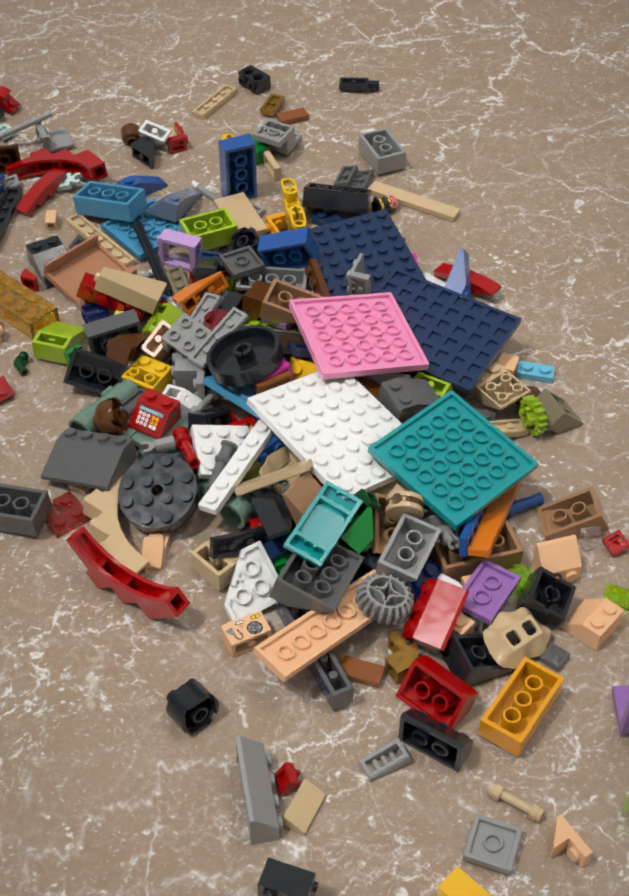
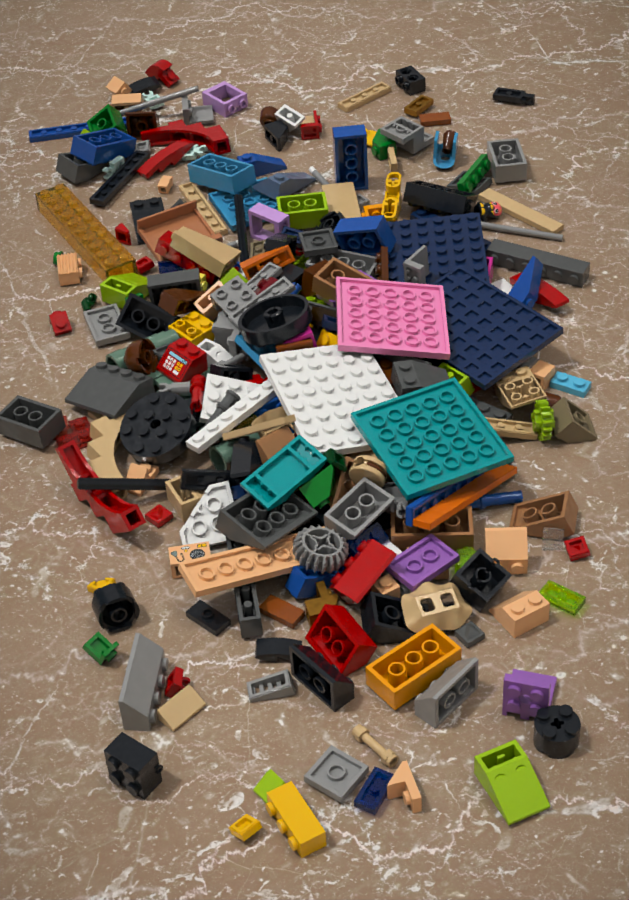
camera: 20 degrees right, 5 degrees down
(48, 385) = (102, 325): none -> light grey plate
(64, 118) = (215, 94): none -> lavender window
(65, 310) = (144, 264): none -> red tile
(148, 563) = (121, 484): none -> black axle
(162, 683) = (99, 584): none -> yellow tile
(192, 589) = (159, 516): none -> red tile
(193, 757) = (100, 648): none -> green bracket
(289, 695) = (208, 618): none -> black plate
(319, 136) = (448, 138): none -> reddish brown cone
(320, 147) = (438, 154): none -> dark azure piece
(358, 168) = (474, 174): none -> green plate
(373, 715) = (273, 648): none -> black slope
(374, 636) = (303, 582): none -> blue slope
(431, 221) = (522, 231): none -> light grey bar
(431, 875) = (267, 783): none -> lime slope
(446, 250) = (555, 266): none -> dark grey brick
(538, 853) = (373, 791): none -> clear blue plate
(563, 725) = (447, 692): none -> light grey slope

